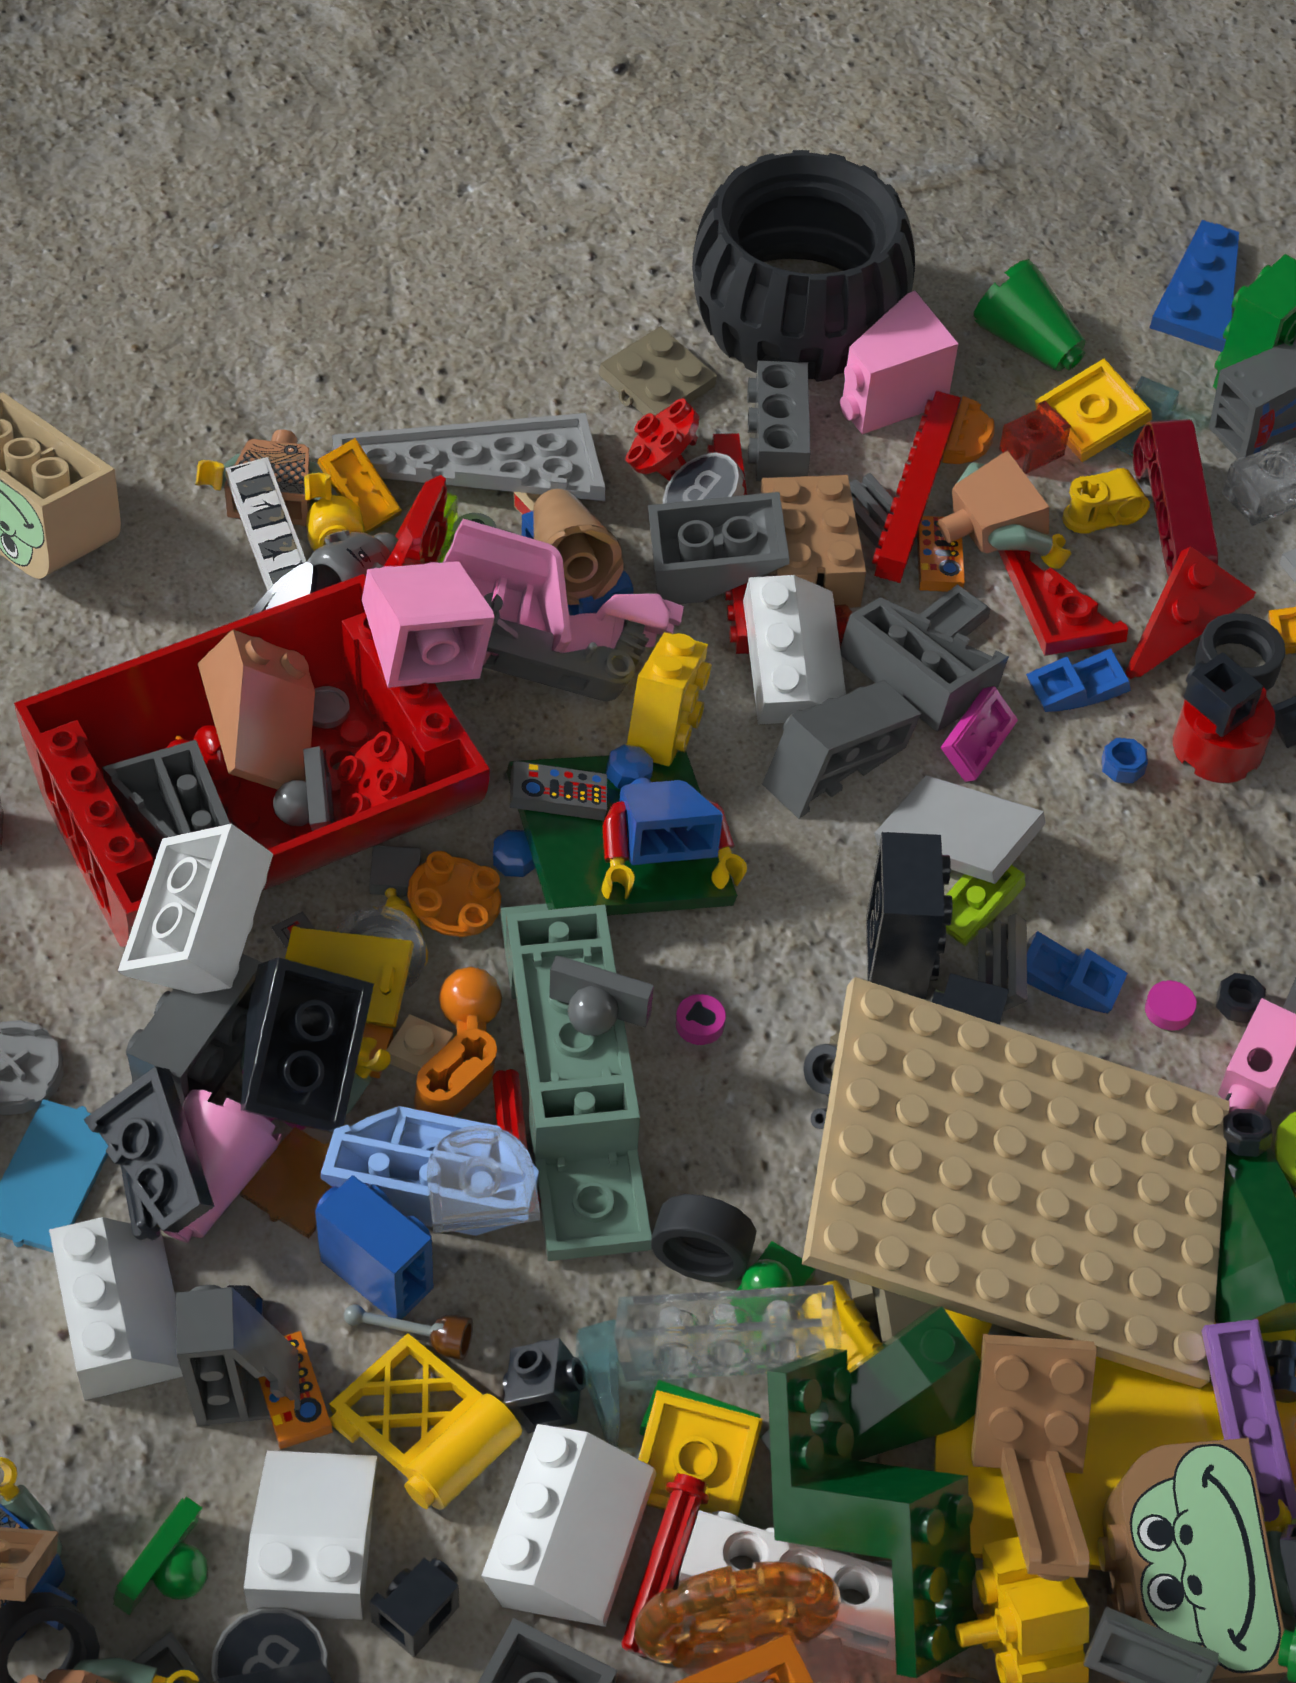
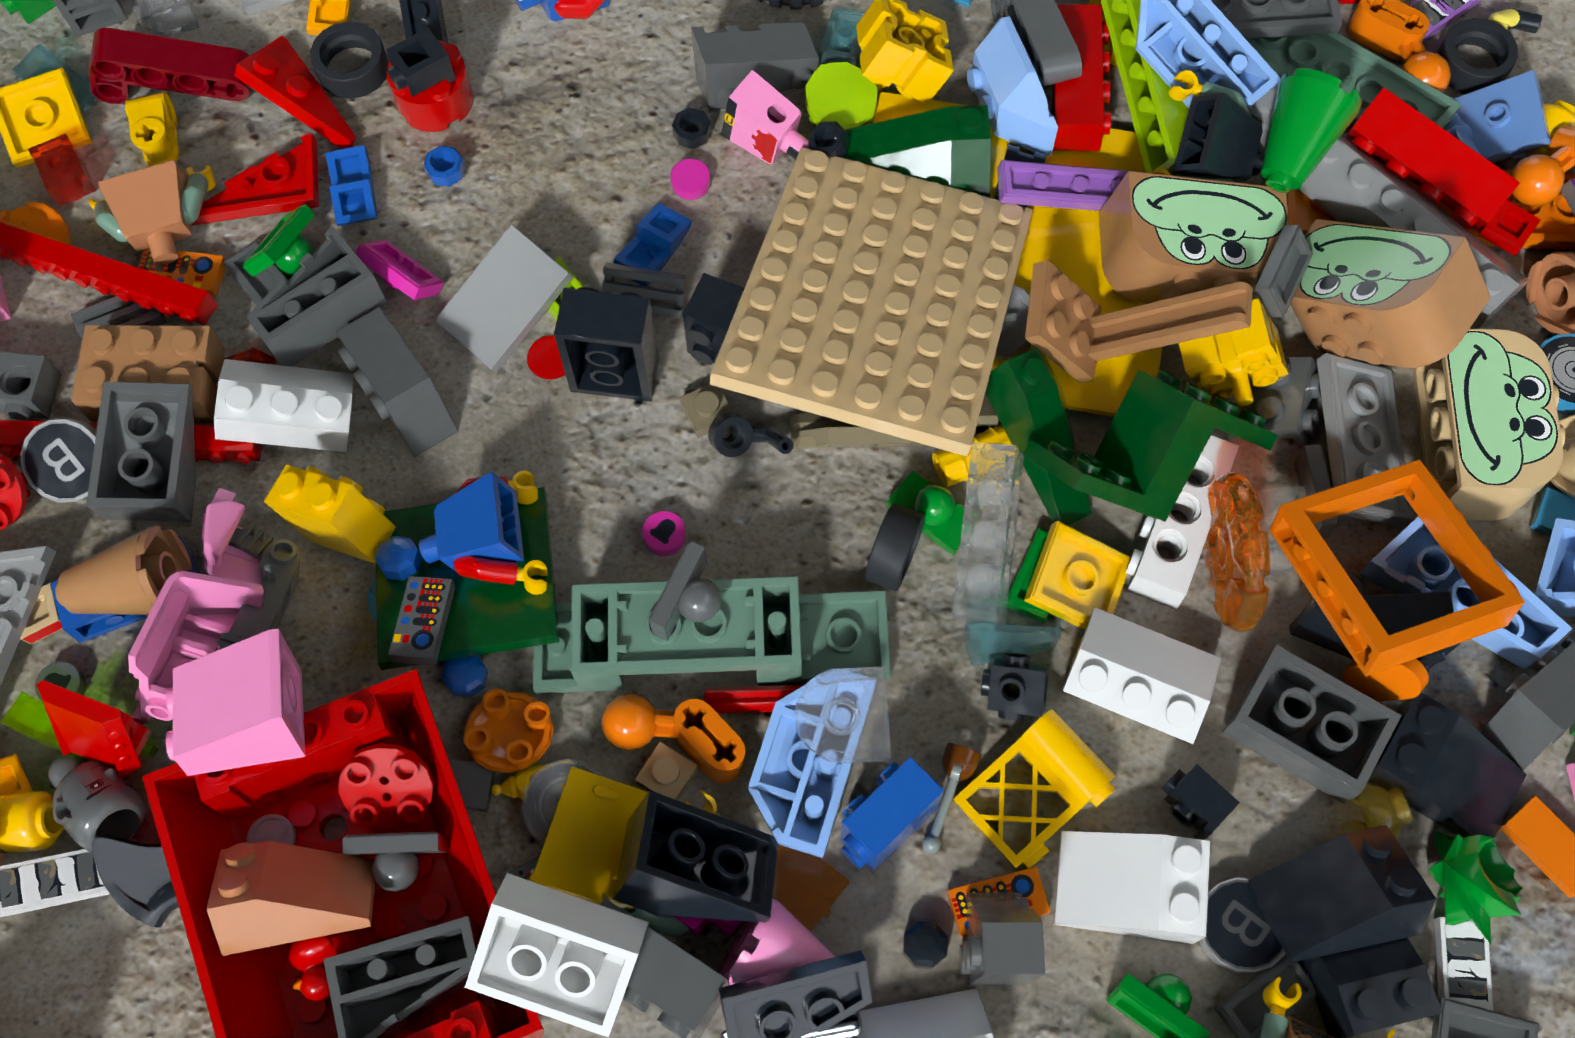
camera: 80 degrees left, 15 degrees up
(669, 1547) = (1167, 609): red axle -> none
(984, 625) = (282, 244): none -> green tile

